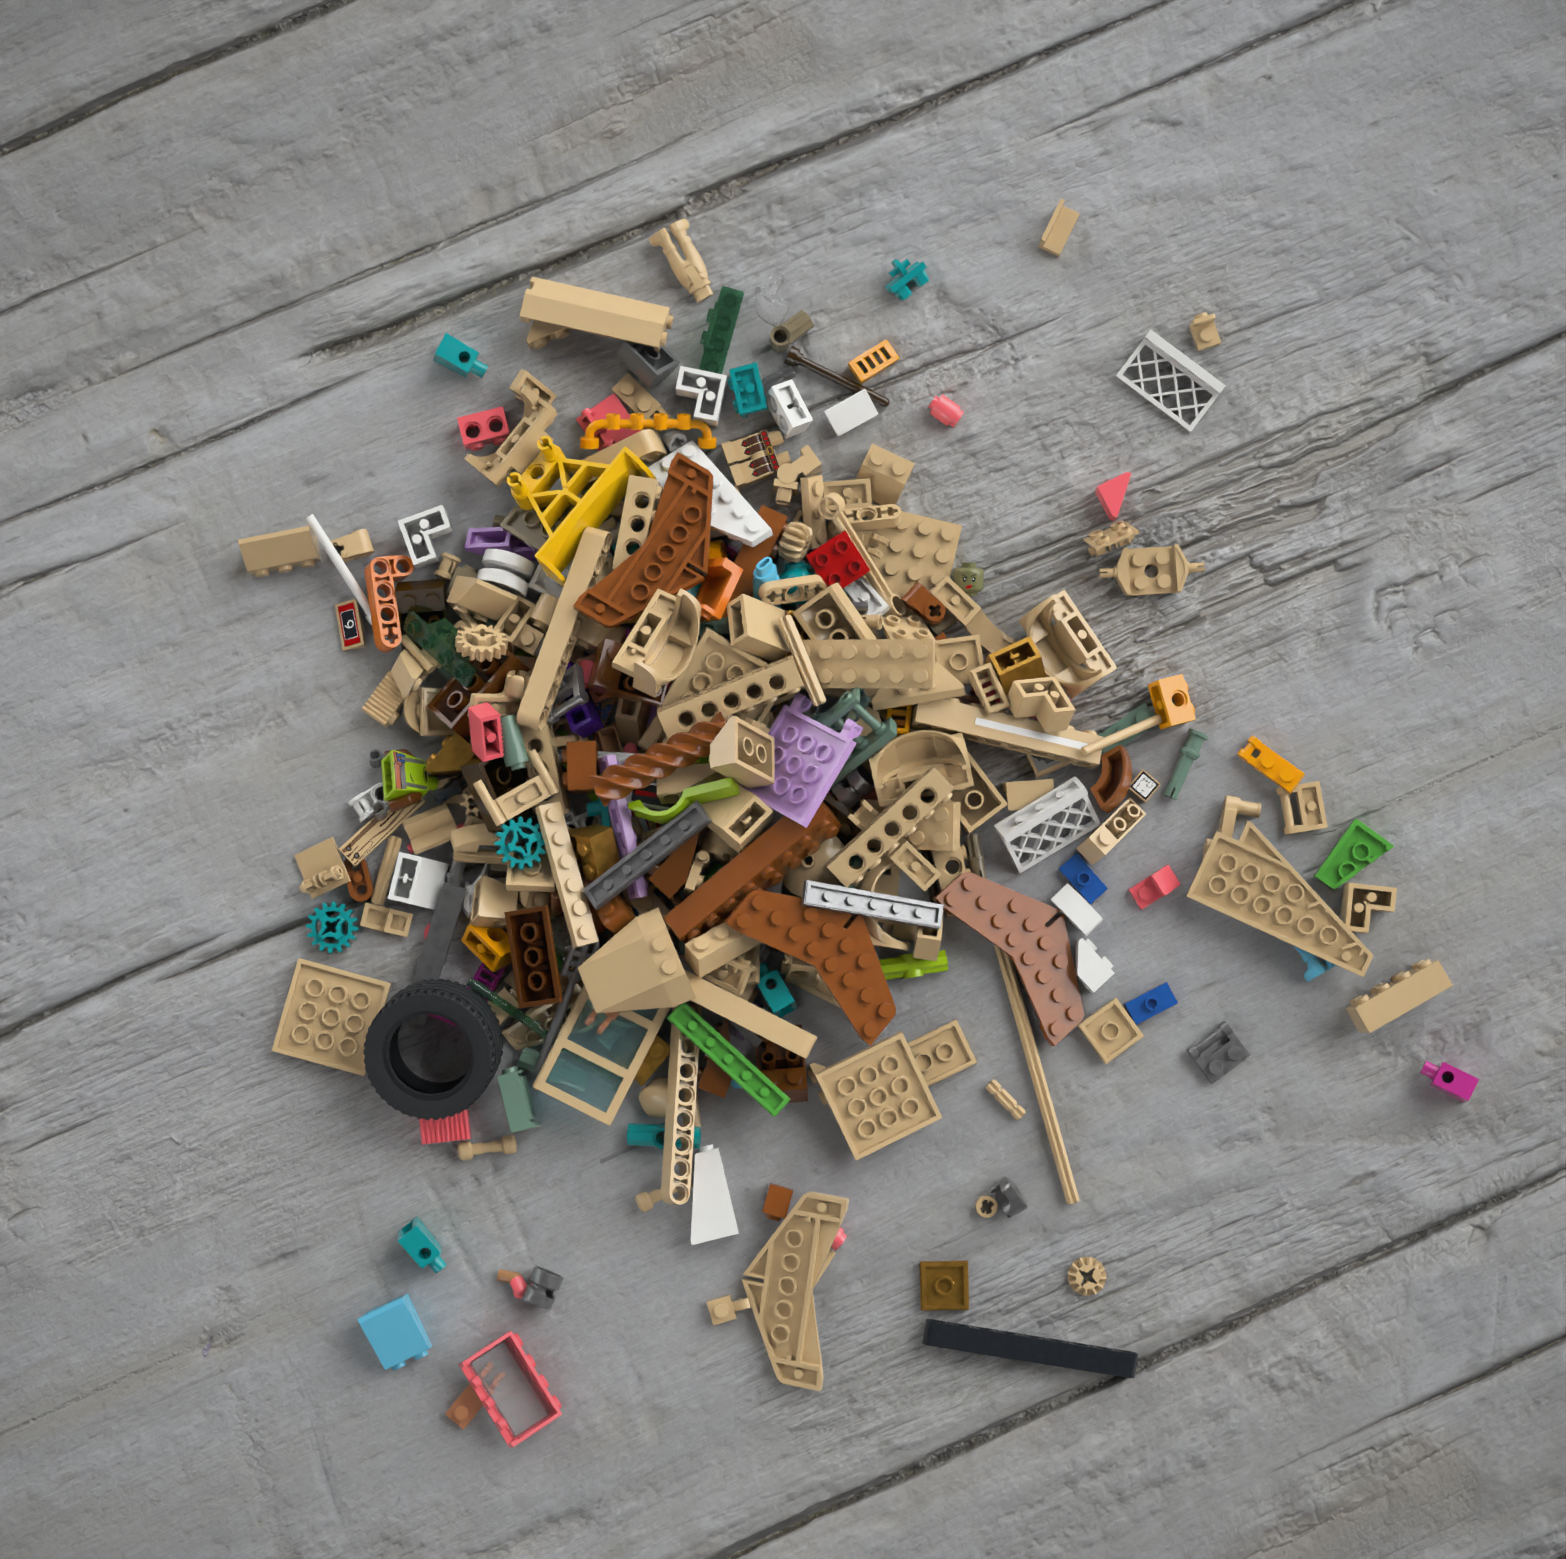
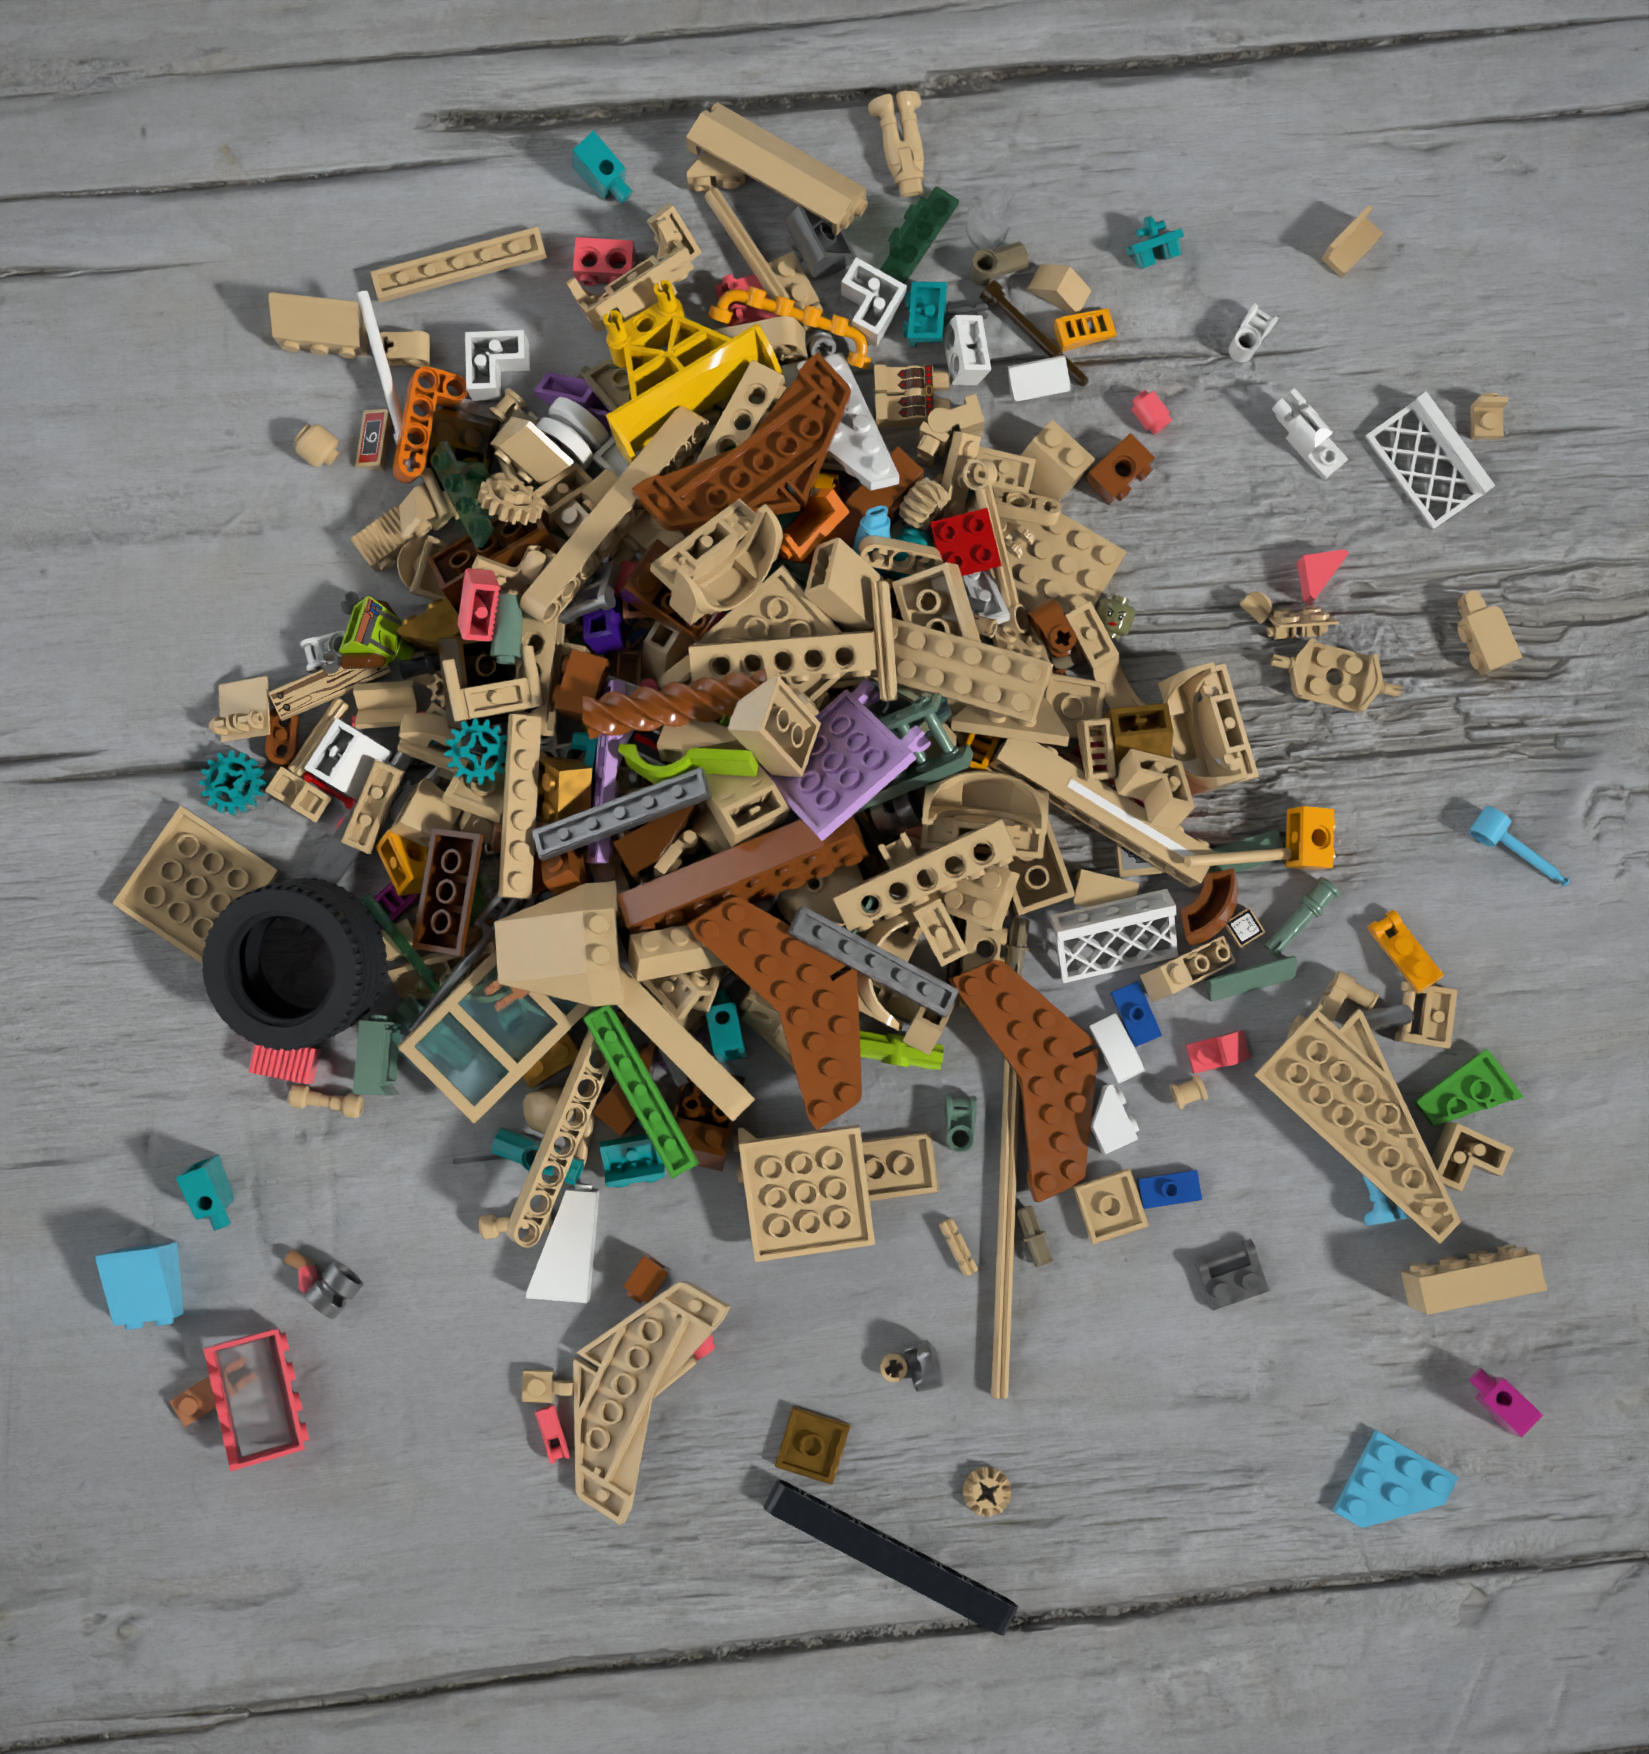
camera: 25 degrees right, 0 degrees up
(308, 644) = (316, 445): none -> tan head
(371, 466) = (458, 264): none -> tan plate
(427, 913) = (348, 802): none -> red hinge
(449, 910) = (372, 806): none -> tan tile
(589, 380) = (745, 244): none -> tan axle
(737, 1115) = (631, 1161): none -> teal bracket
(743, 1338) = (551, 1429): none -> coral bar
(844, 335) = (1060, 287): none -> tan slope
(926, 473) = (1128, 454): none -> dark orange brick
(975, 1003) = (960, 1120): none -> sand green piece
(1004, 321) = (1253, 331): none -> white piece
(1060, 1072) = (1034, 1236): none -> dark tan axle
(1072, 390) = (1309, 434): none -> white plate
(1074, 535) = (1257, 605): none -> tan plate
(1141, 925) = (1188, 1092): none -> tan bush
(1161, 823) = (1251, 978): none -> sand green slope
(1255, 501) = (1486, 634): none -> tan hinge
(1271, 820) = (1389, 1016): none -> flat silver bar
(1307, 648) = (1493, 826): none -> medium azure piece
(1388, 1169) = (1392, 1484): none -> medium azure plate

